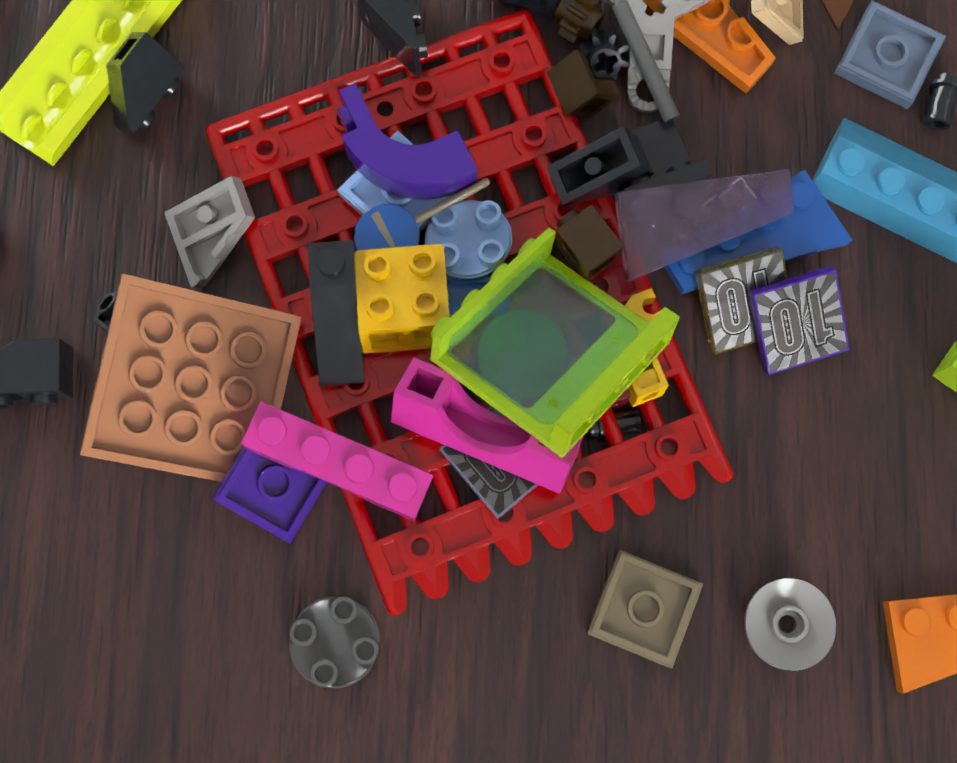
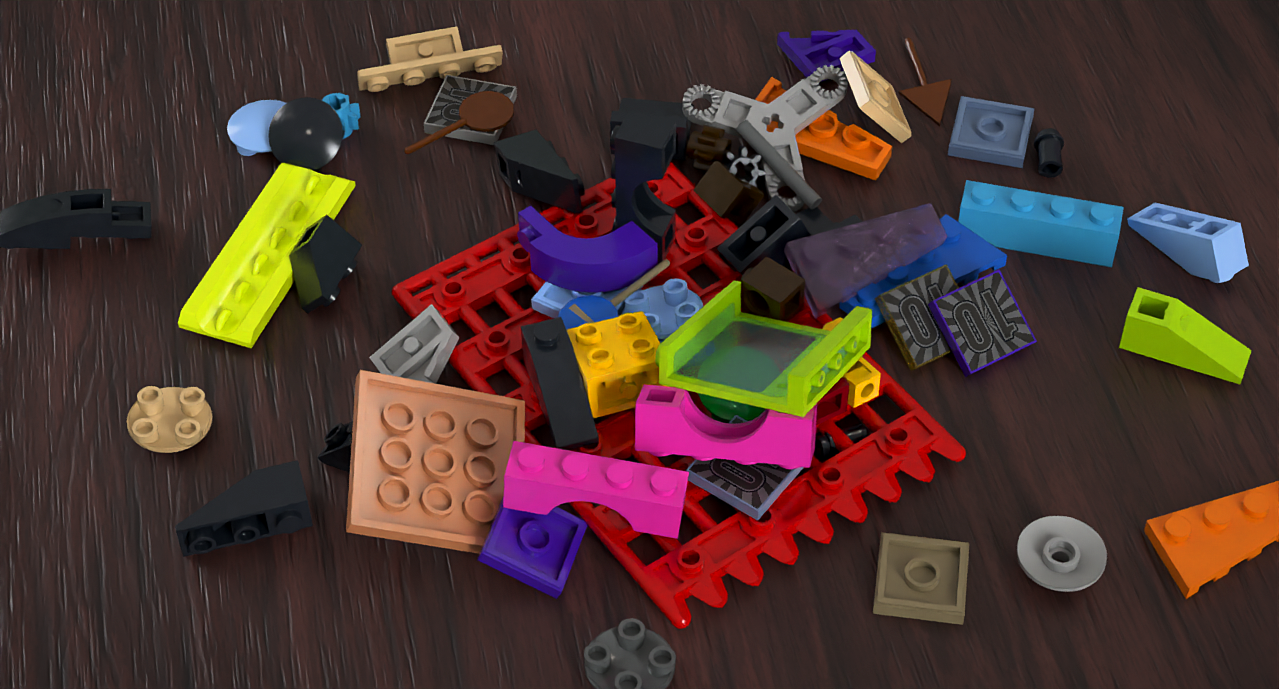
camera: 10 degrees left, 30 degrees down
(472, 85) = (642, 154): none -> black arch

